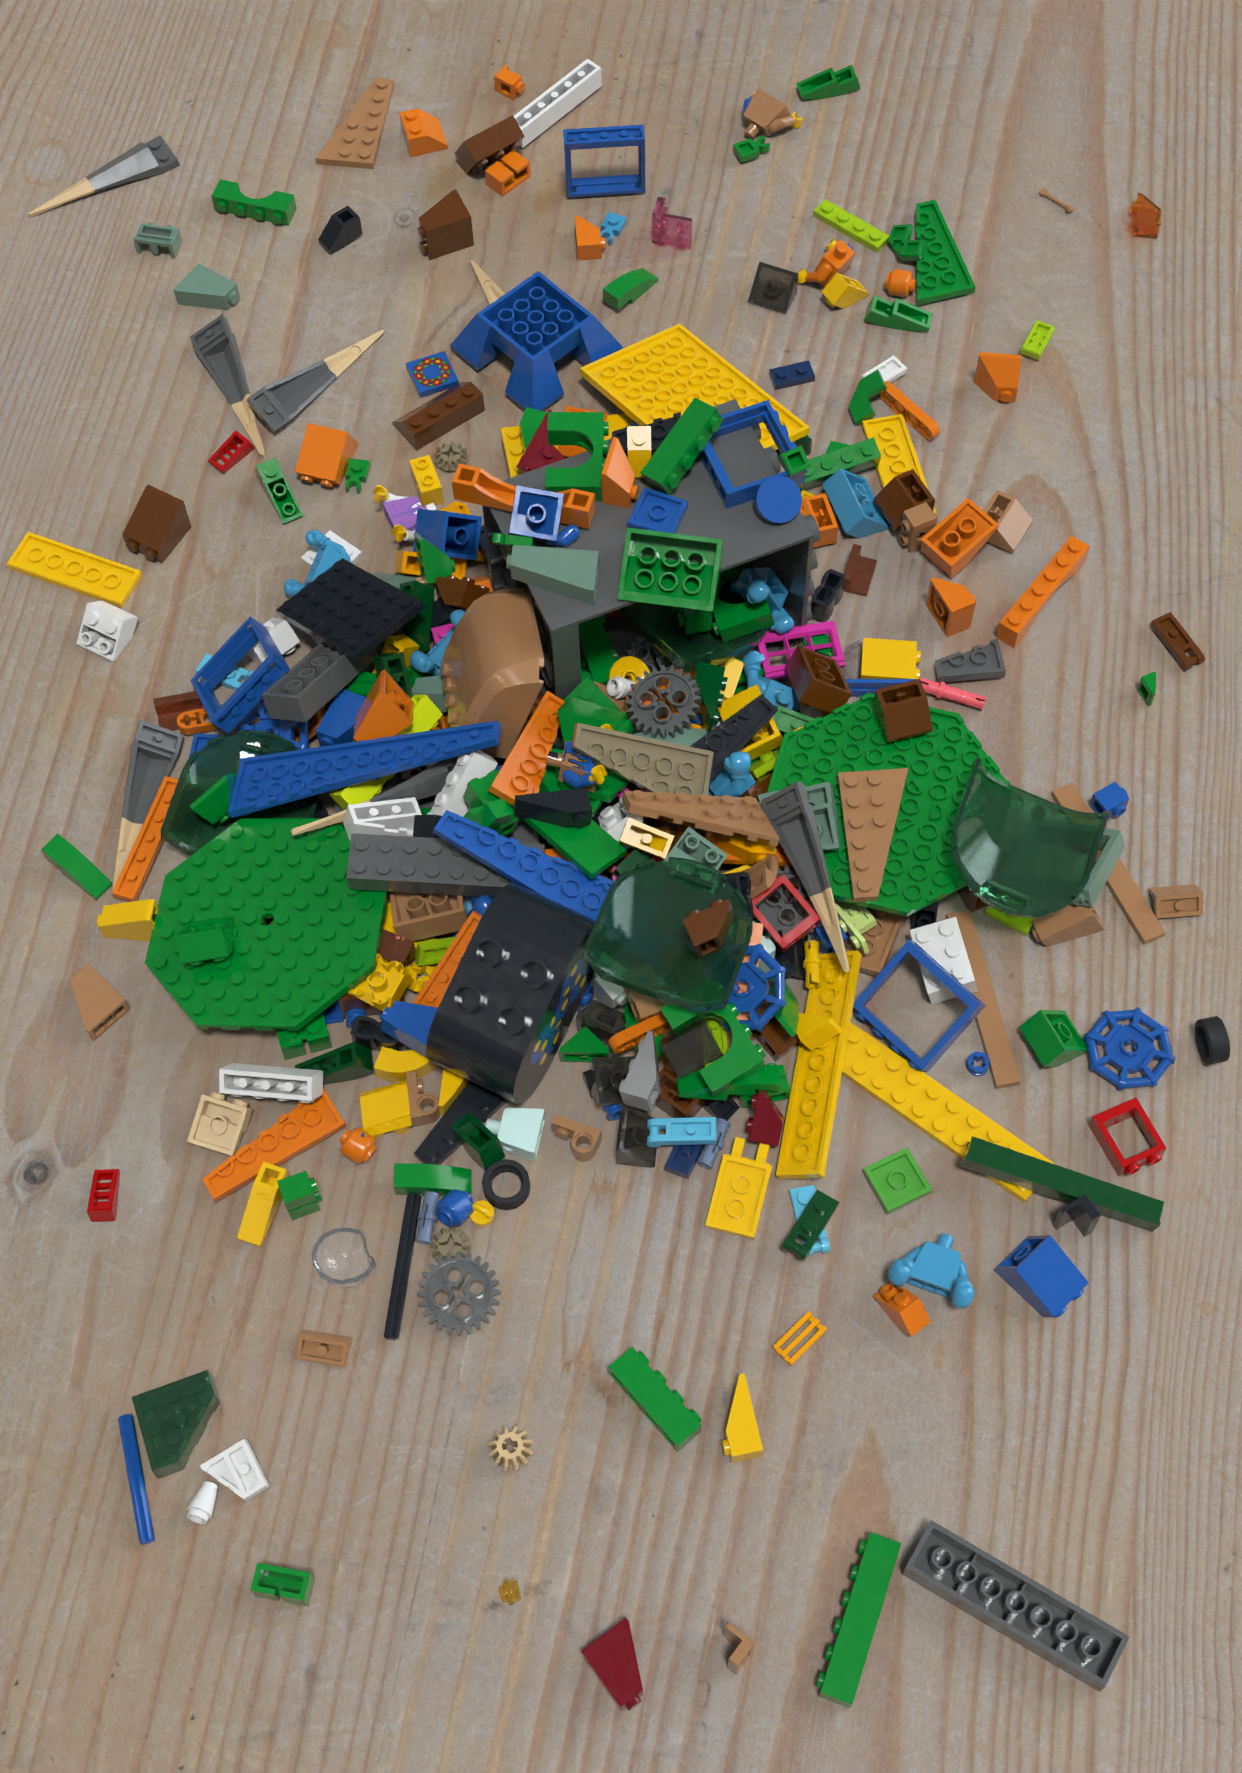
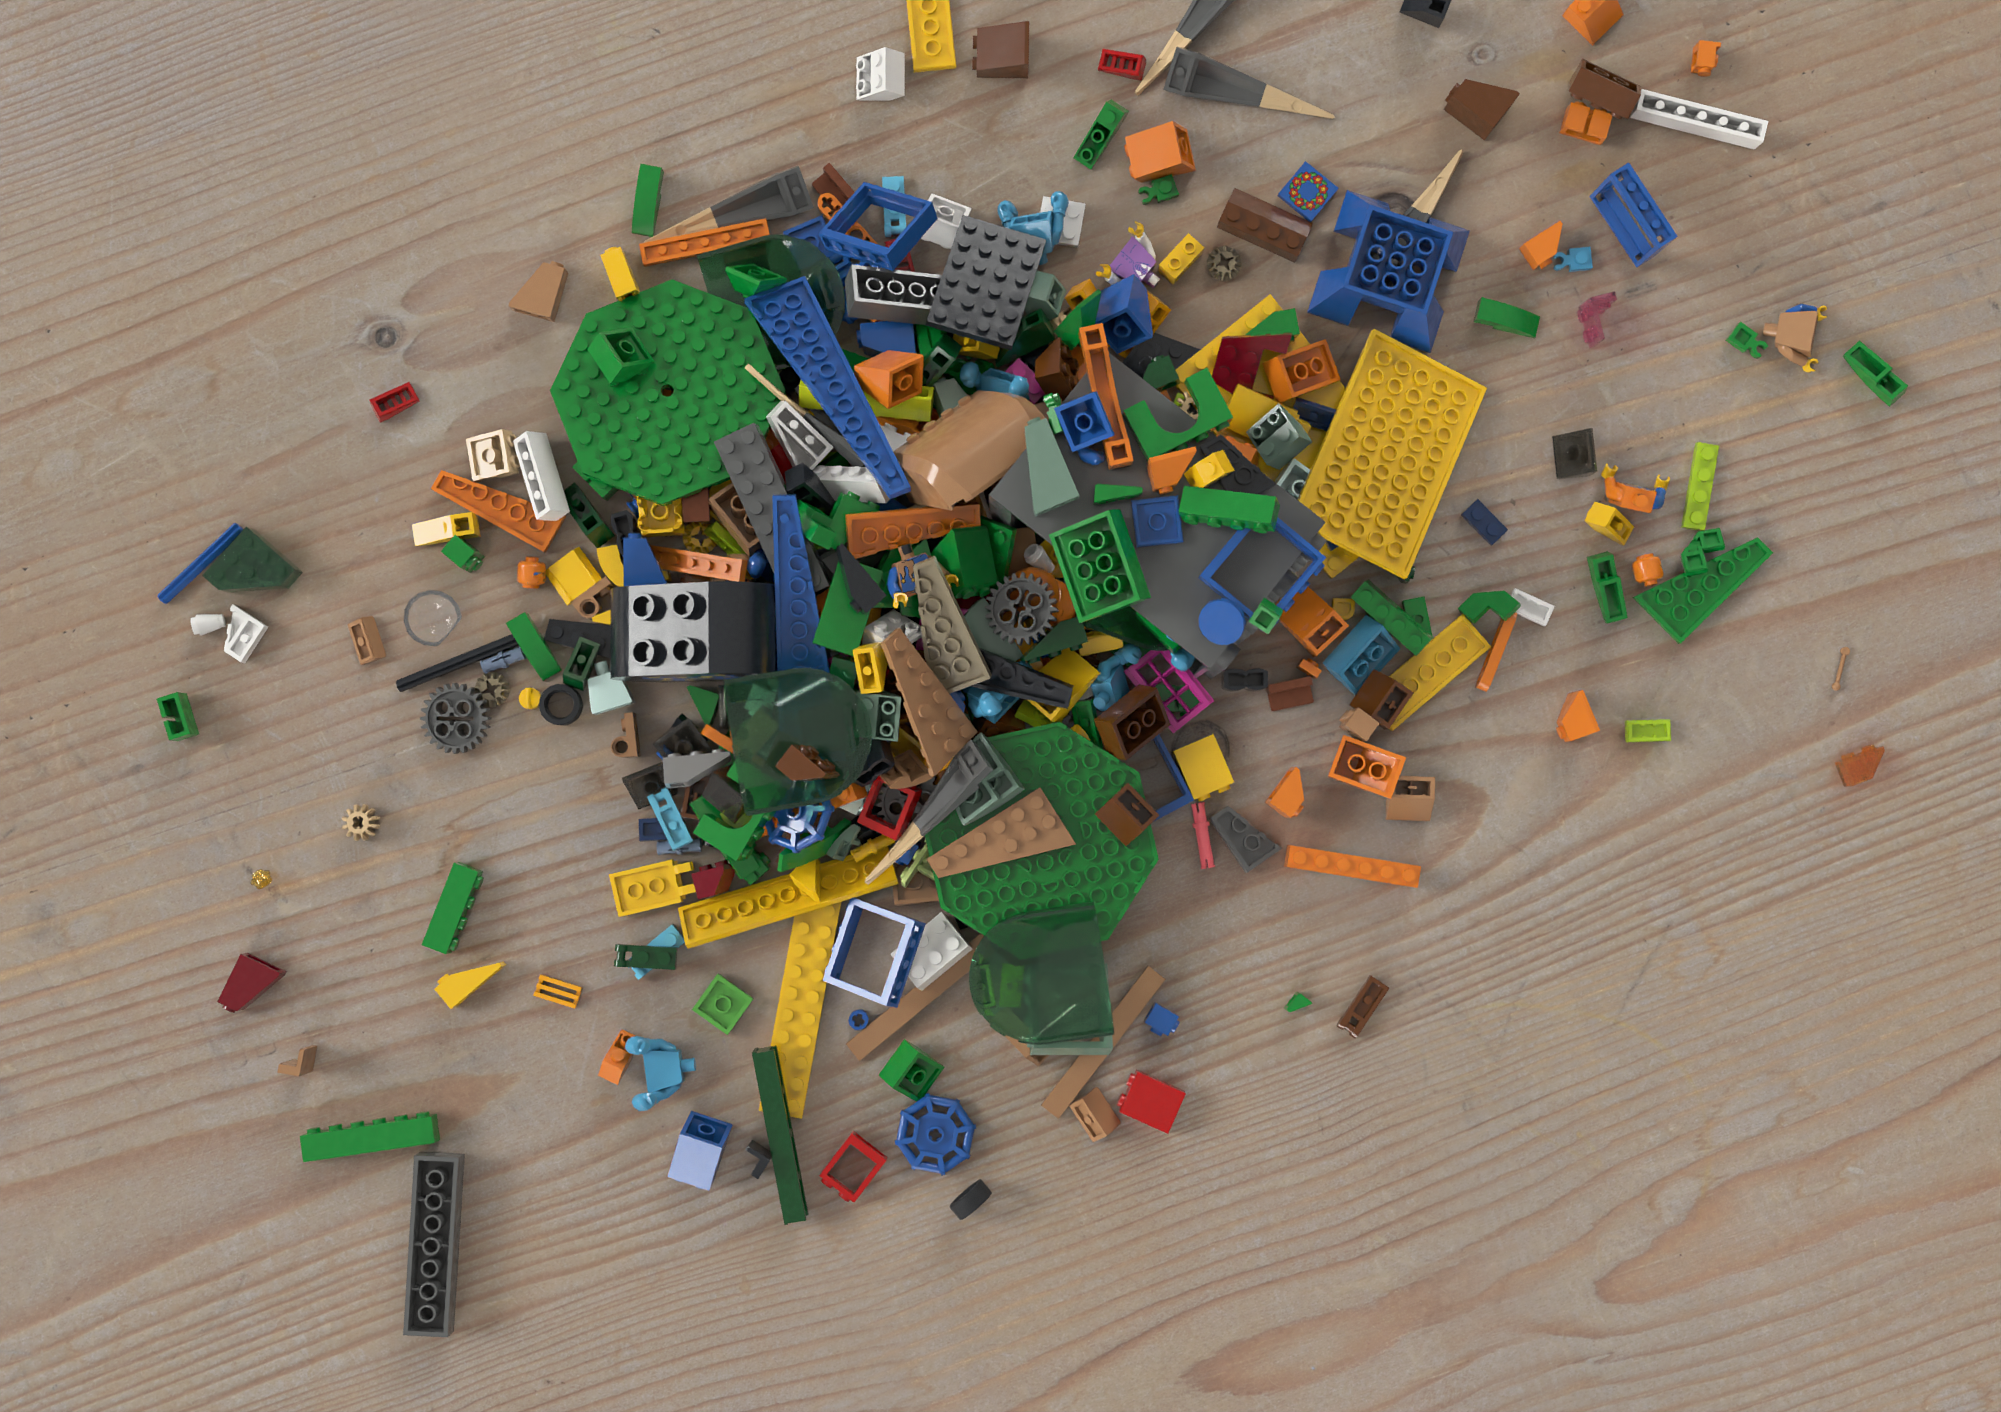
camera: 60 degrees right, 25 degrees up
(455, 1208) = (520, 676): blue head -> none
(611, 531) = (1110, 493): none -> green slope
(792, 975) = (844, 842): none -> sand green slope
(843, 546) = (1309, 667): none -> orange plate
(1186, 845) = (1151, 1101): none -> red brick

